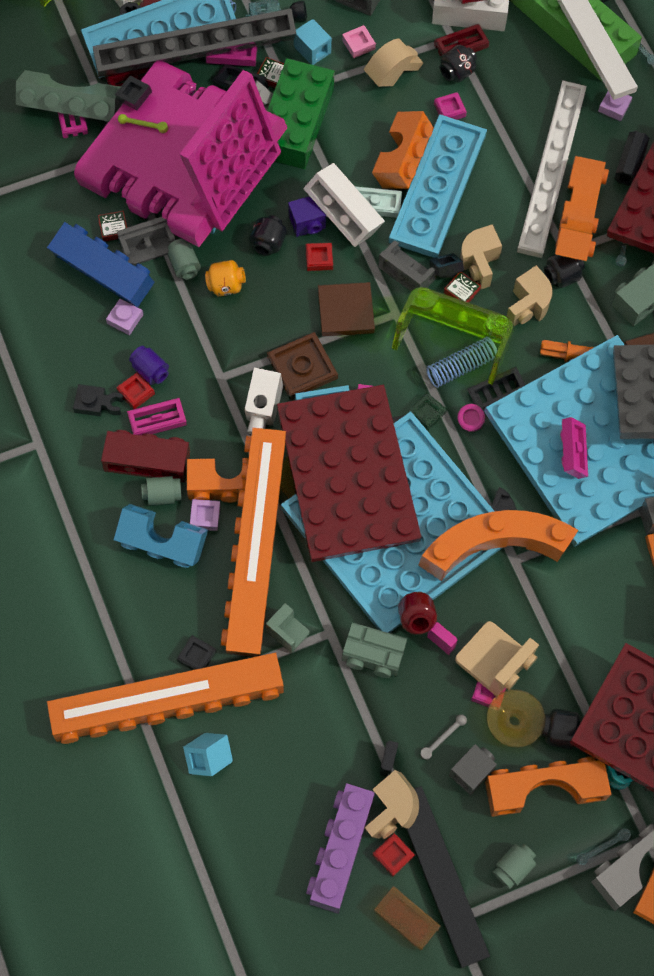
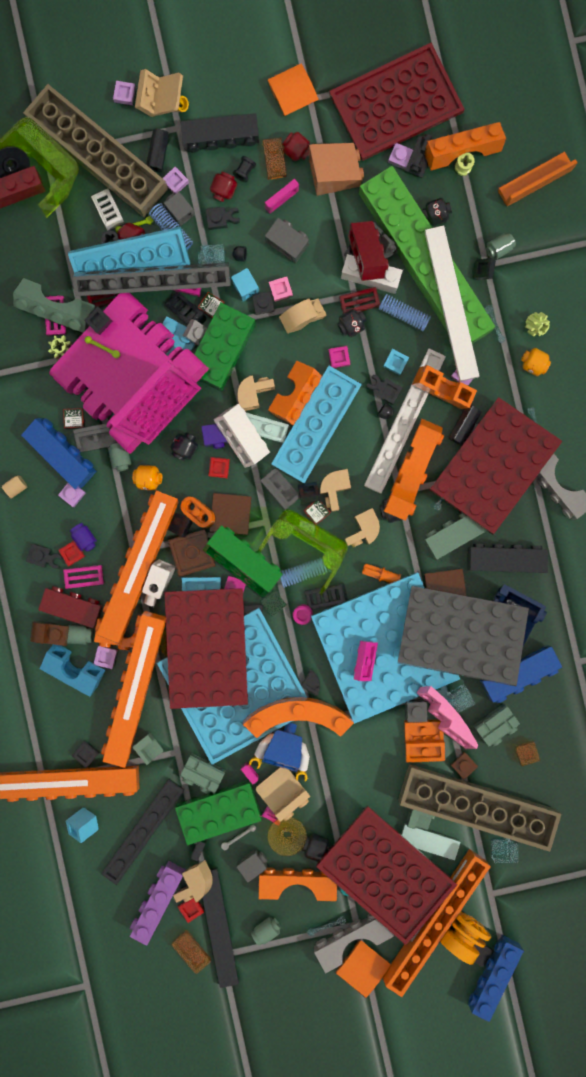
camera: 10 degrees right, 20 degrees up
(44, 315) = (14, 486): none -> tan brick
(80, 141) = (54, 345): none -> yellowish green gear
(116, 488) = (49, 633): none -> reddish brown brick
(230, 391) = (135, 572): none -> orange brick
(280, 330) = (180, 525): none -> black tile
(299, 753) = (142, 831): none -> black tile
(303, 310) = (198, 513): none -> orange plate
(340, 61) = (263, 303): none -> black plate
(347, 155) = (248, 391): none -> tan brick
(376, 353) = (242, 561): none -> green brick
(408, 698) = (218, 812): none -> green brick
(417, 613) = (234, 759): dark red head -> none
(486, 596) = (284, 751): none -> blue torso
(521, 134) = (387, 391): none -> black plate
(523, 158) = (385, 411): none -> black hinge
(524, 100) = (396, 362): none -> medium azure plate
(549, 60) = (407, 314): none -> light blue piece
(610, 122) = (449, 391): none -> orange arch

